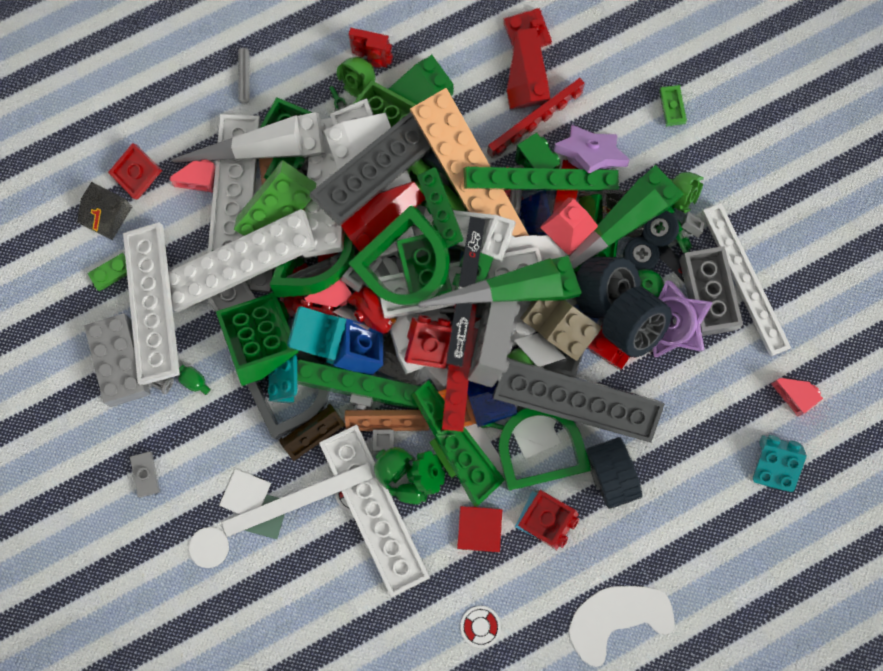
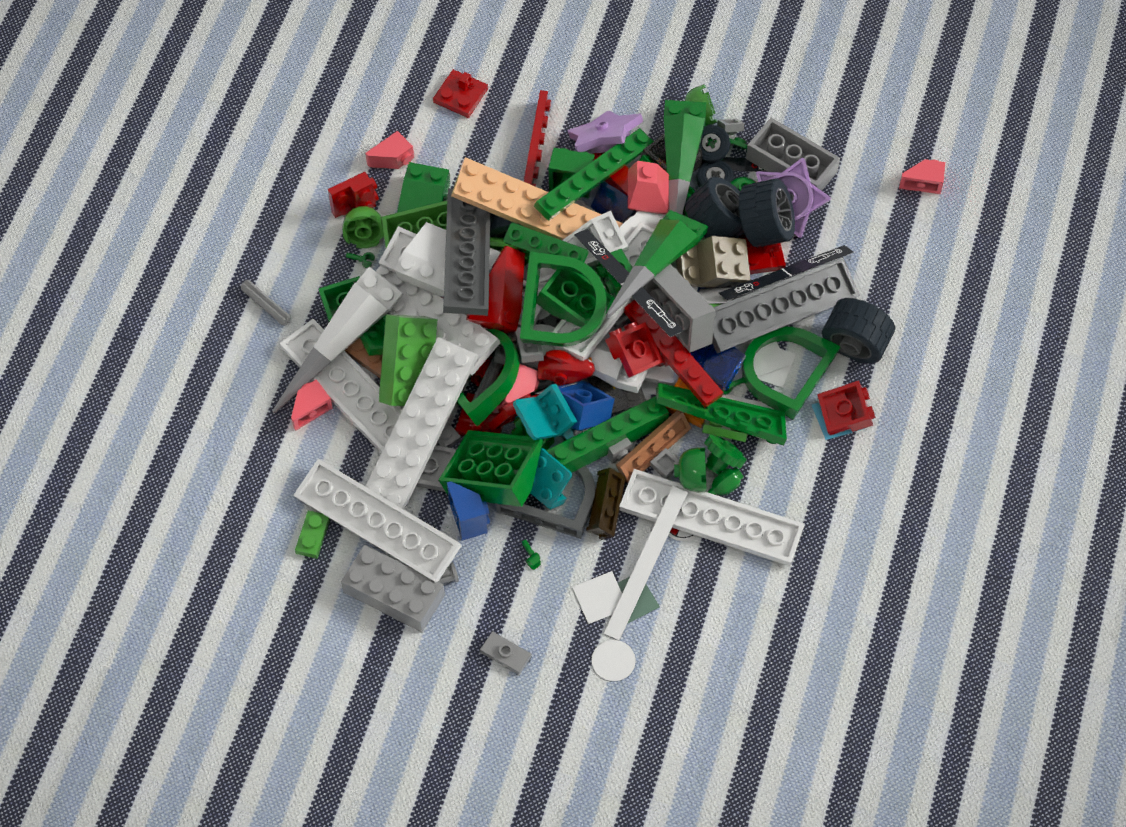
camera: 45 degrees left, 15 degrees down
(102, 211) = (257, 493): clear smoke slope -> none
(135, 171) = (253, 441): red hinge -> none
(192, 379) = (471, 552): green plant -> none
(212, 351) = (468, 511): none -> blue slope
(228, 426) = (534, 559): none -> green hand
(432, 36) = (390, 153): none -> coral slope
(479, 529) = (802, 462): red tile -> none
(480, 626) = (875, 528): sticker -> none
(527, 75) = (498, 121): red wedge -> none
(610, 377) = (785, 272): none -> black sticker
(617, 609) = (957, 429): white sticker -> none
(673, 105) = (627, 58): bright green plate -> none
(746, 280) = (827, 138): white plate -> none
(779, 463) = (962, 232): teal bracket -> none

